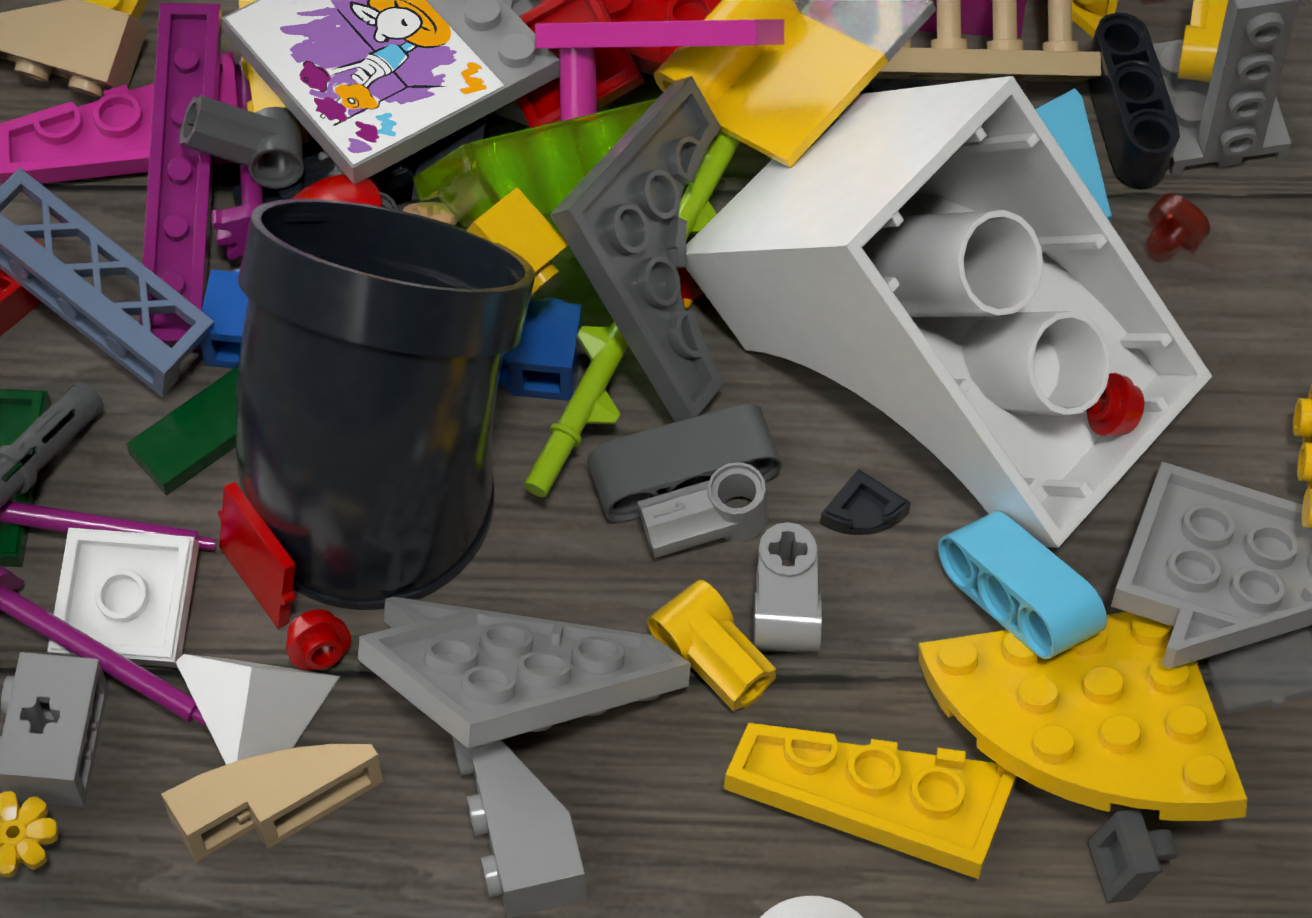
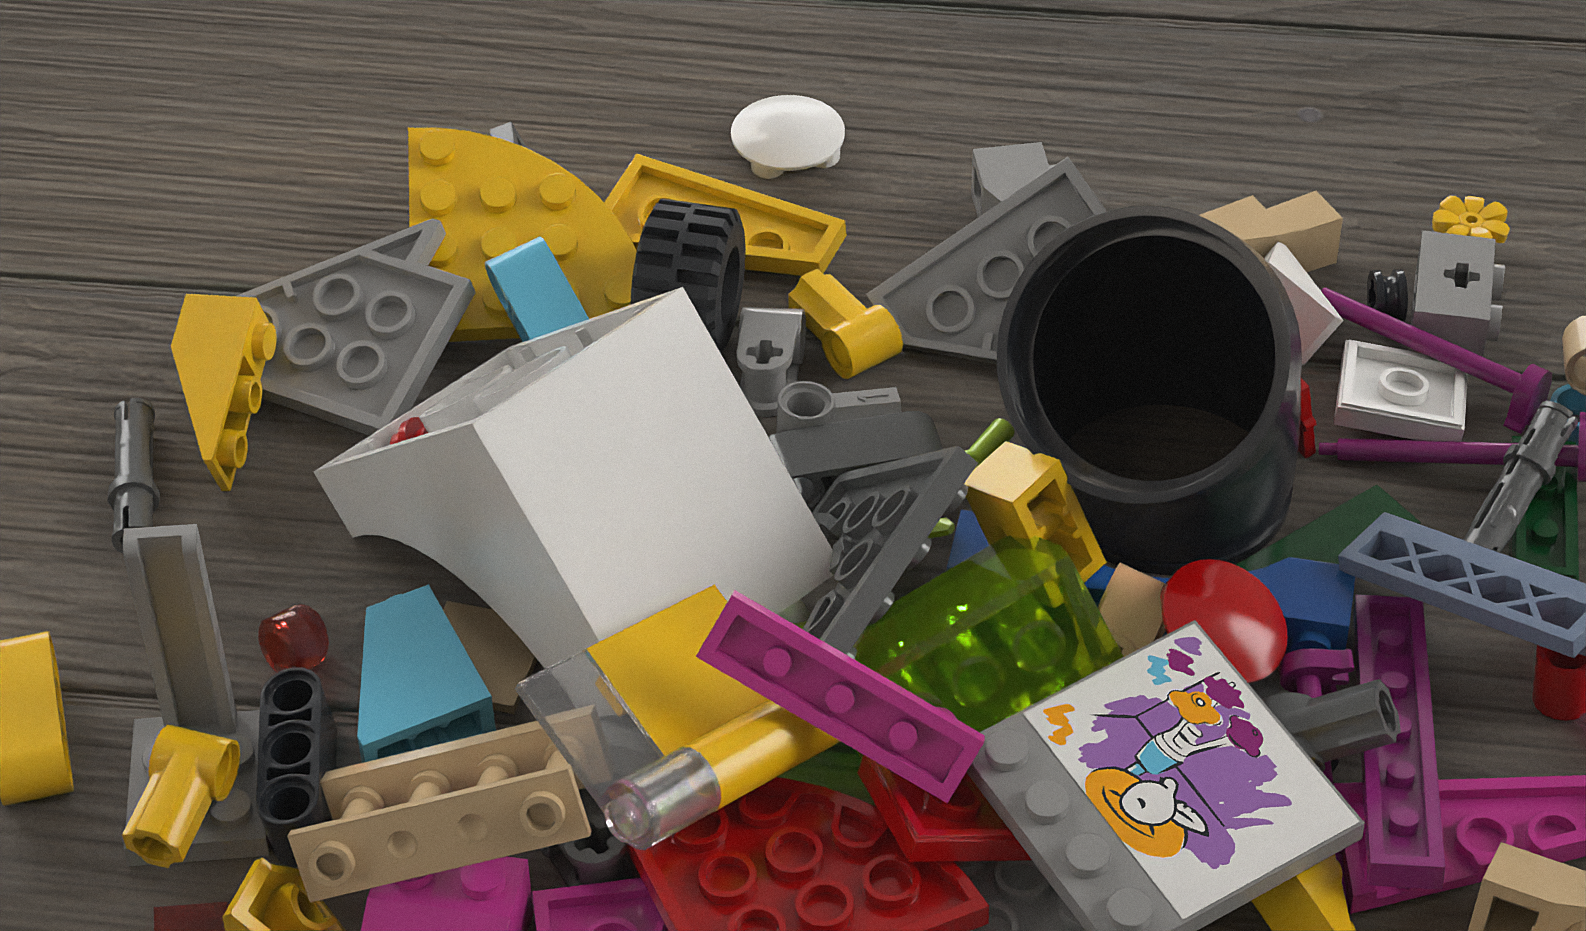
camera: 175 degrees left, 15 degrees down
(122, 730) = (1388, 293): none -> black bush
(881, 622) = (695, 250): none -> black tyre

